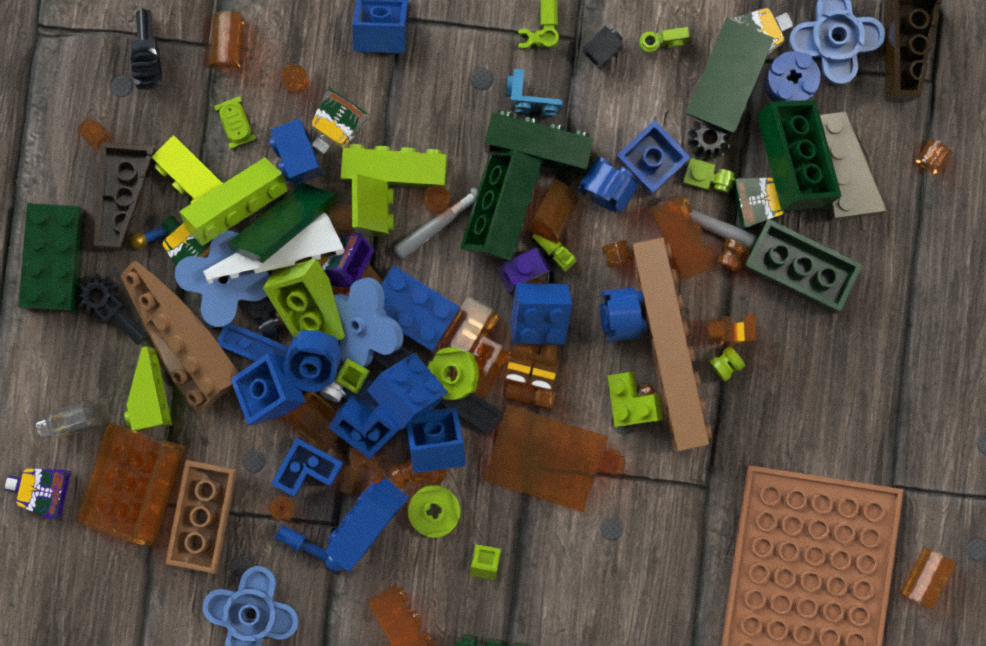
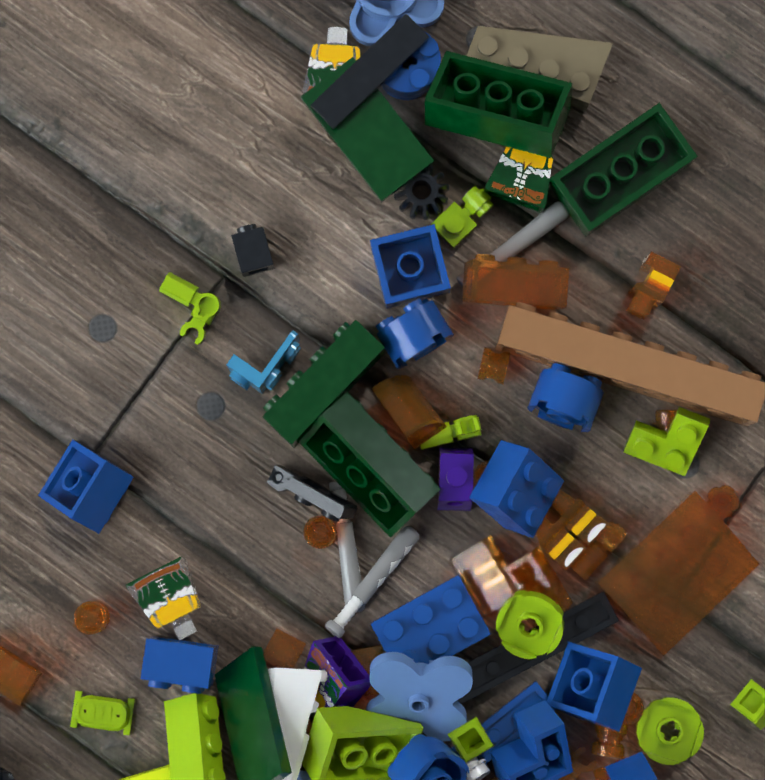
camera: 65 degrees left, 0 degrees up
(371, 206) = (290, 611): lime slope -> none
(395, 167) = (257, 560): lime brick -> none
(407, 391) = (523, 687): blue brick -> none
(433, 254) = (374, 579): none -> light grey piece
(460, 178) = (310, 493): none -> hinge
(672, 38) = (286, 168): lime plate -> none
(727, 363) = (683, 313): lime wheel -> none
(732, 254) = (569, 245): clear orange wheel -> none
(770, 54) = (369, 72): none -> black tile

